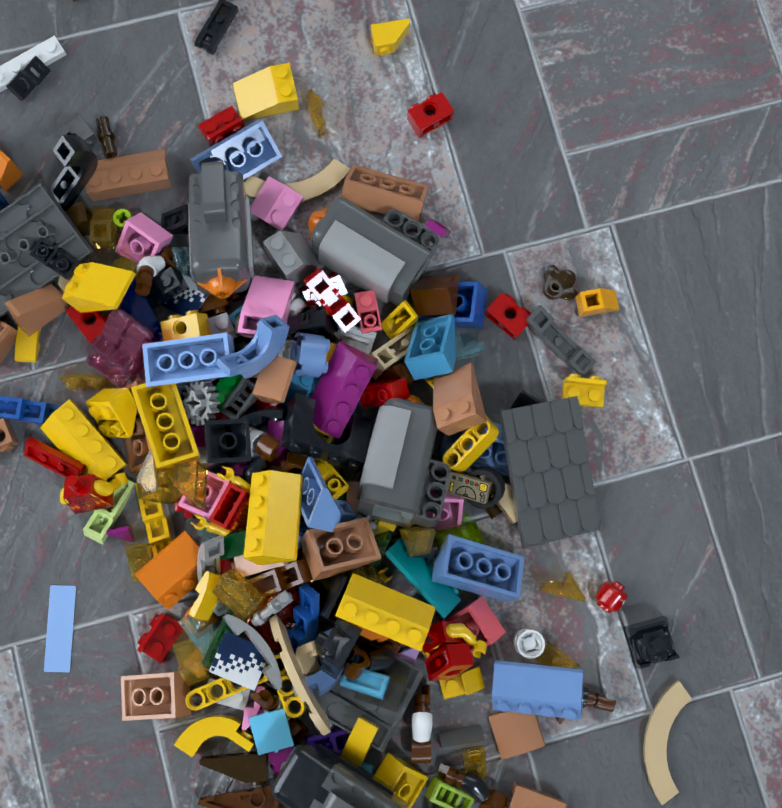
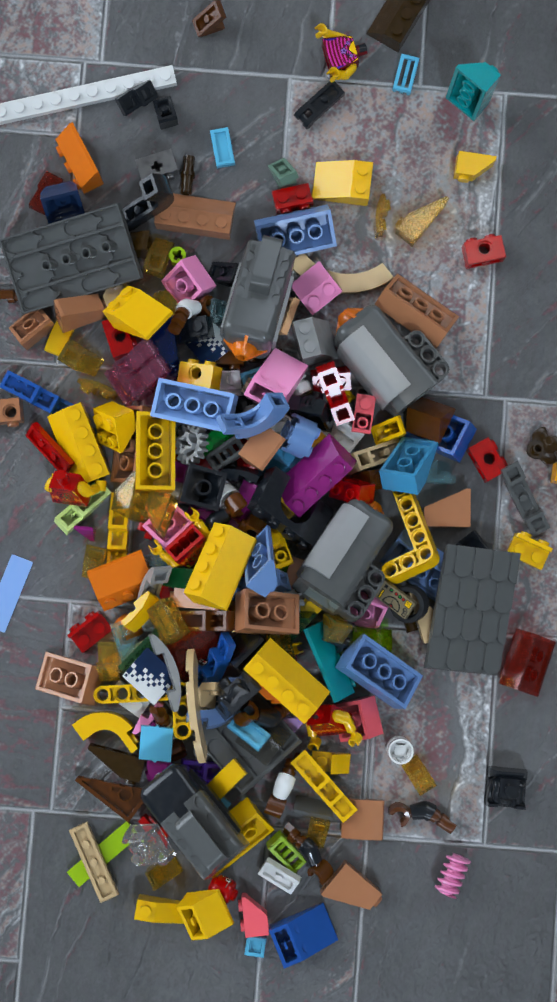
camera: 30 degrees right, 5 degrees up
(54, 258) = (108, 274): black slope -> none
(56, 356) = (80, 358): none -> clear yellow slope
(63, 84) = (165, 112): none -> black slope
(133, 99) = (222, 147): none -> medium azure tile
(204, 104) = (283, 173): none -> sand green slope
(257, 231) = (292, 306): none -> light nougat tile
(273, 607) = (194, 641): light grey piece -> none
(355, 105) = (418, 221): none -> clear yellow slope
(438, 228) = (452, 360): magenta tile -> none
(449, 662) = (325, 741): red brick -> none
(457, 401) = (413, 521): nougat slope -> none
(464, 711) = (324, 786): none -> yellow slope
(495, 377) = (450, 512): none -> nougat slope
(538, 690) = (392, 791): medium blue slope -> none
(568, 590) = (451, 717): clear yellow slope -> none
(611, 596) = (486, 736): red head -> none
(624, 505) = (527, 662): none -> clear red slope
(631, 754) = (452, 875): none -> bright pink piece
(656, 741) = (479, 871): tan tile -> none

